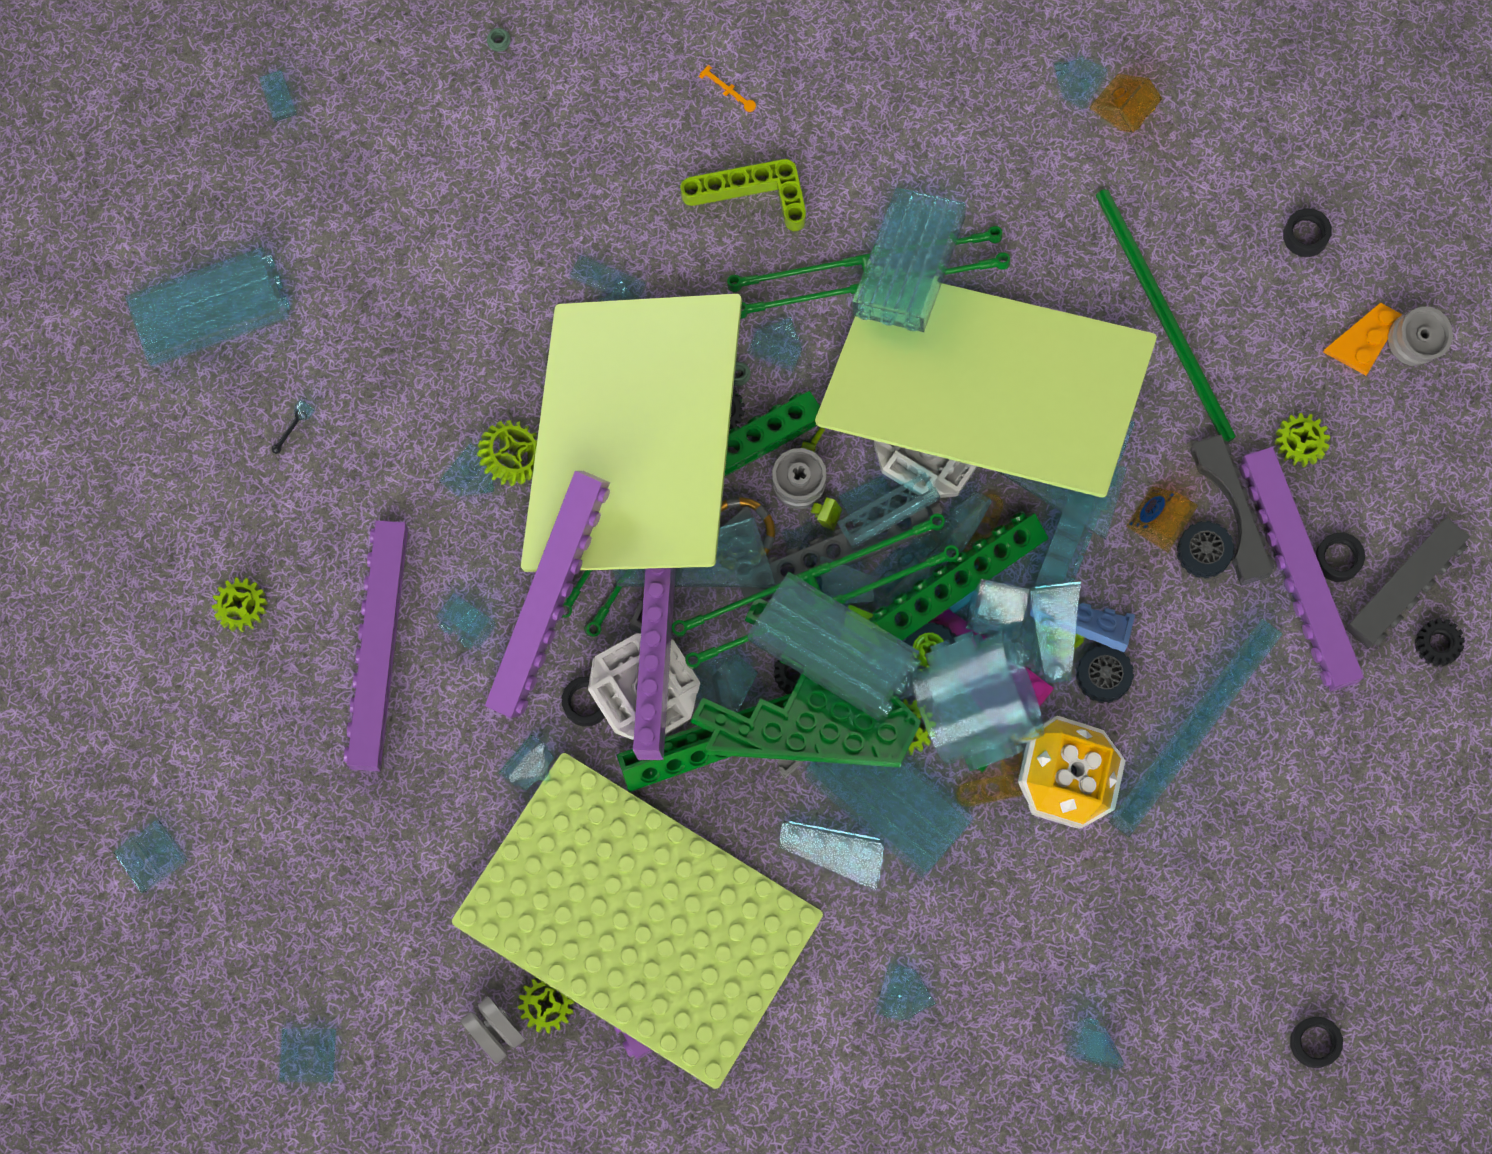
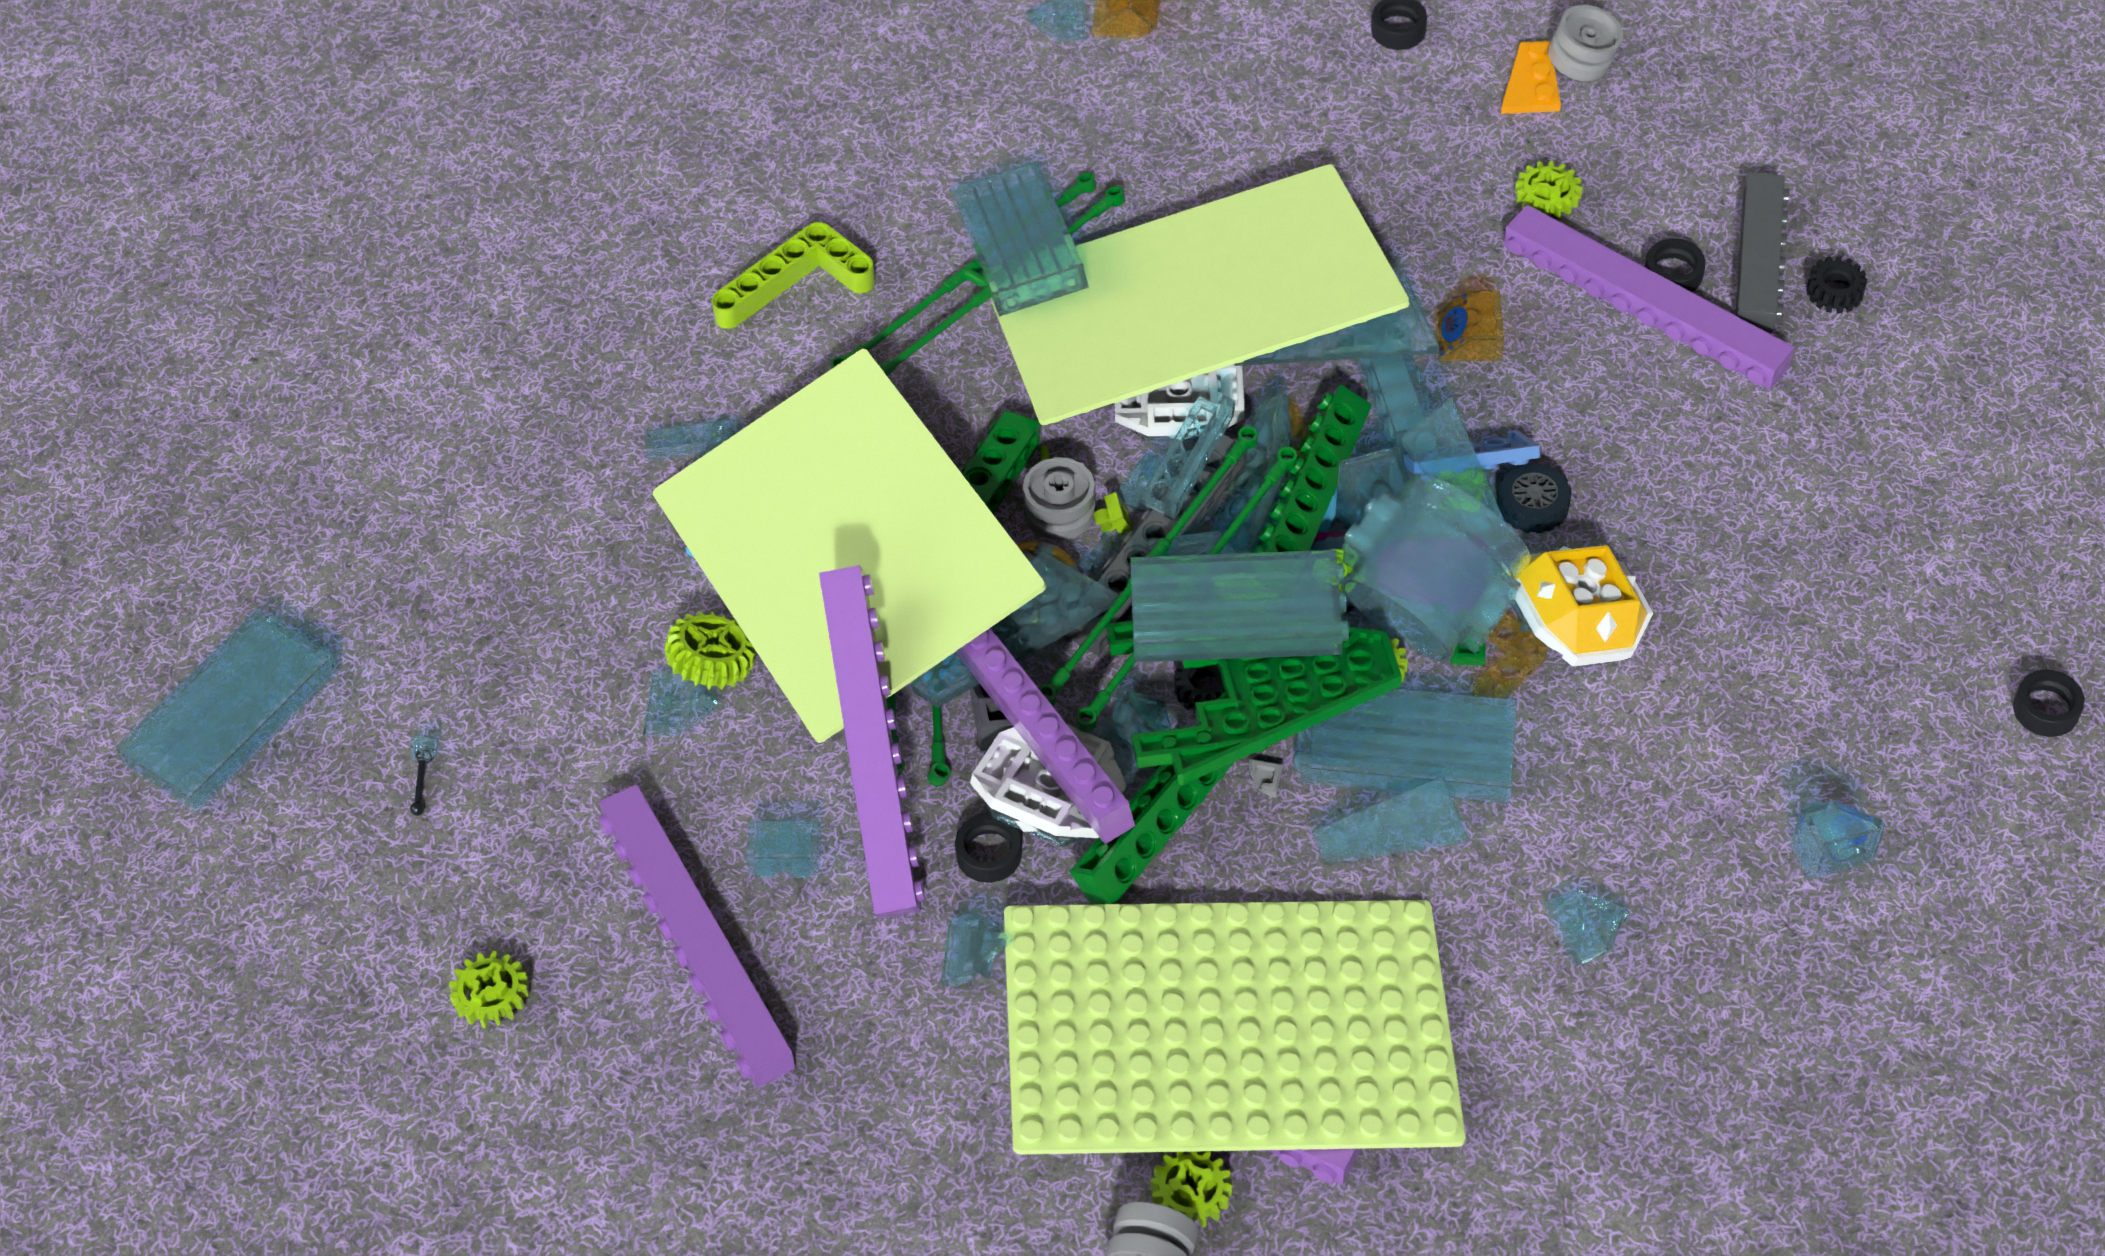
camera: 35 degrees left, 20 degrees down
(277, 96) = (169, 465): clear light blue plate -> none
(498, 33) = (403, 284): sand green plate -> none
(749, 105) = (728, 208): light orange piece -> none
(777, 344) = (936, 395): clear light blue slope -> none
(1165, 315) = (1315, 159): green axle -> none
(1195, 728) = (1670, 492): clear light blue brick -> none
(1205, 549) = (1534, 319): black wheel -> none
(1214, 462) = (1482, 254): dark grey arch -> none

